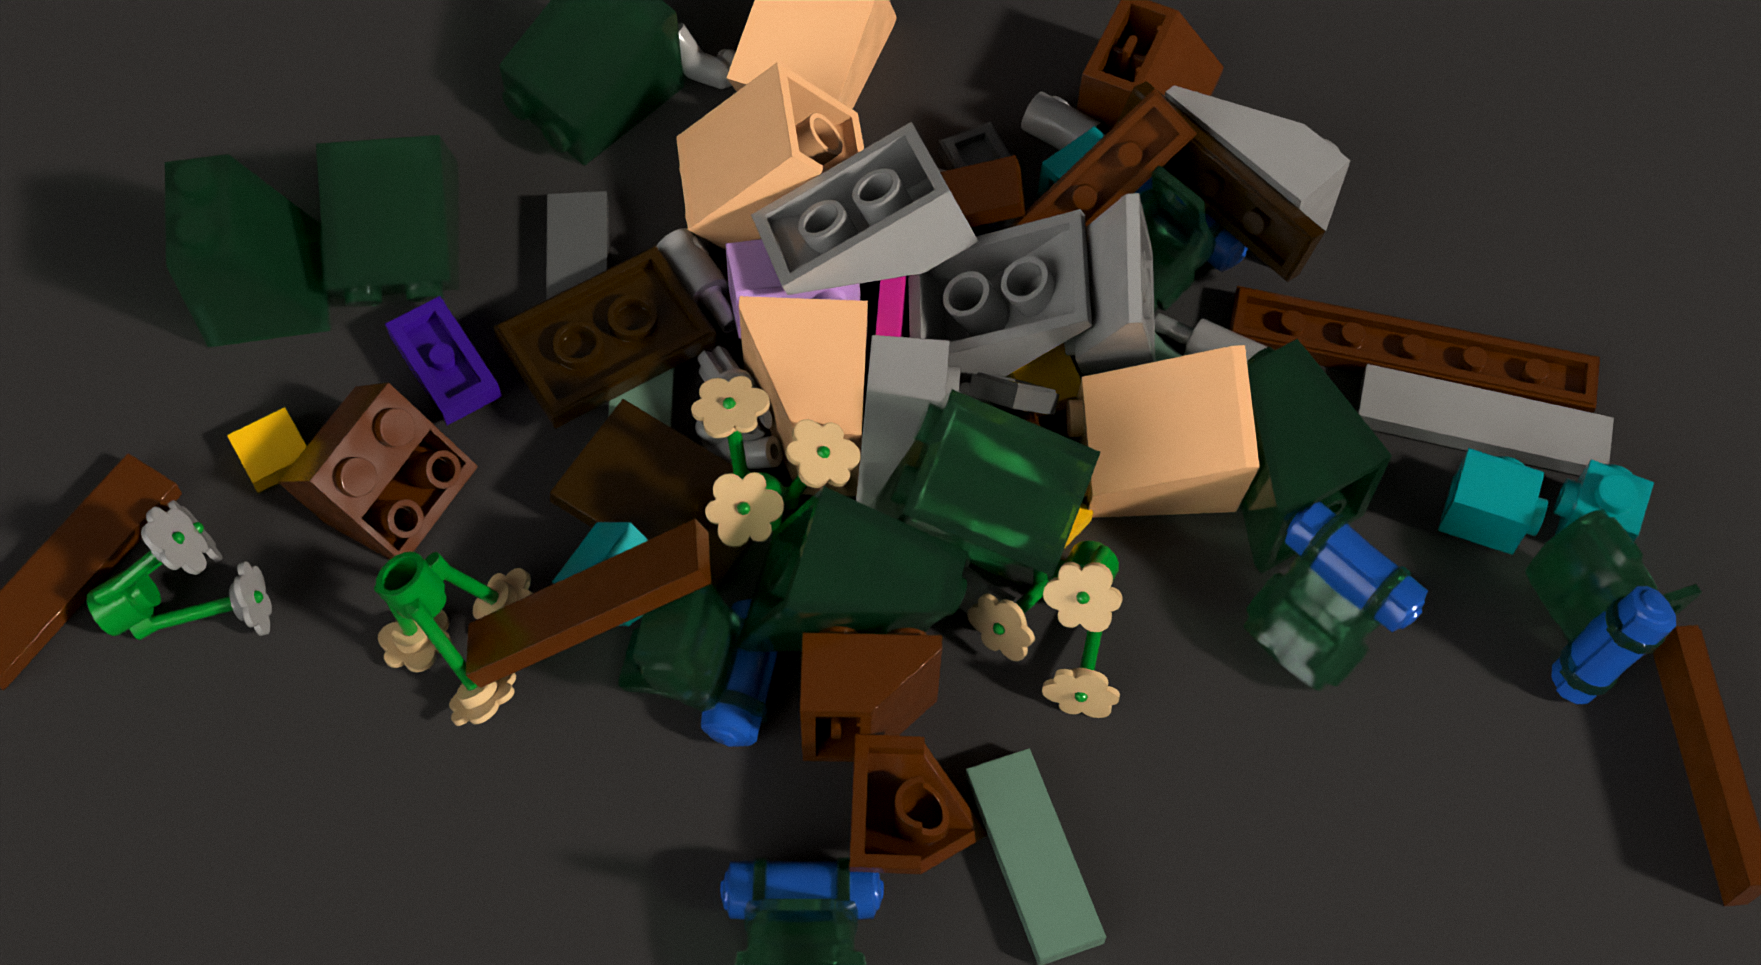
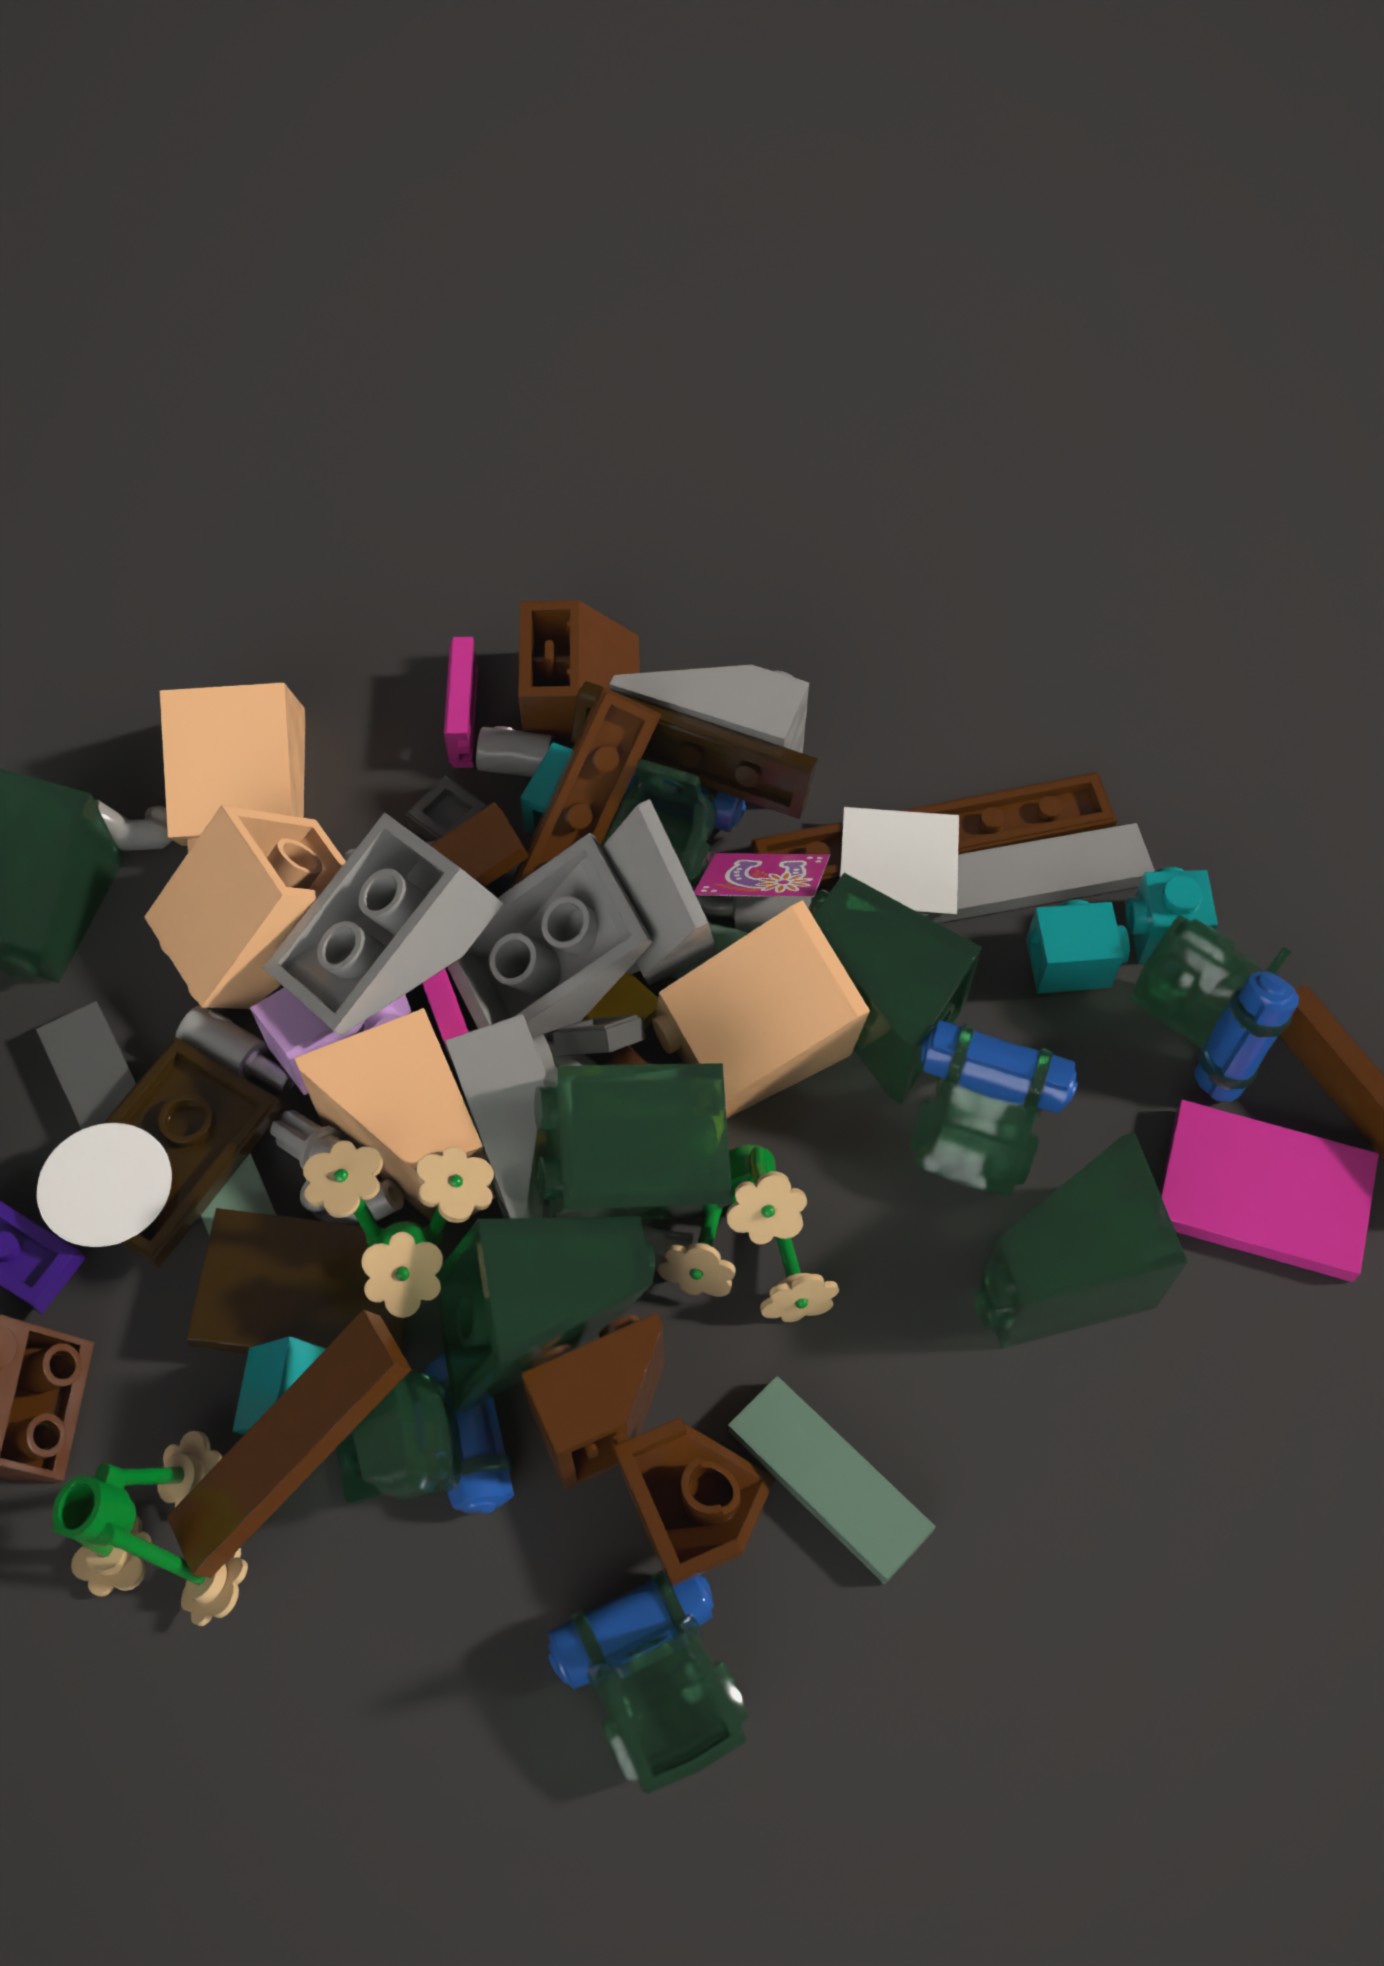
camera: 25 degrees left, 0 degrees up
(542, 340) = (104, 1185): none -> white sticker
(1034, 63) = (461, 702): none -> dark pink tile
(1228, 316) = (763, 875): none -> dark pink sticker
(1353, 764) = (1083, 1253): none -> clear green slope
(1372, 357) = (904, 856): none -> white sticker
(1569, 797) = (1269, 1190): none -> dark pink tile

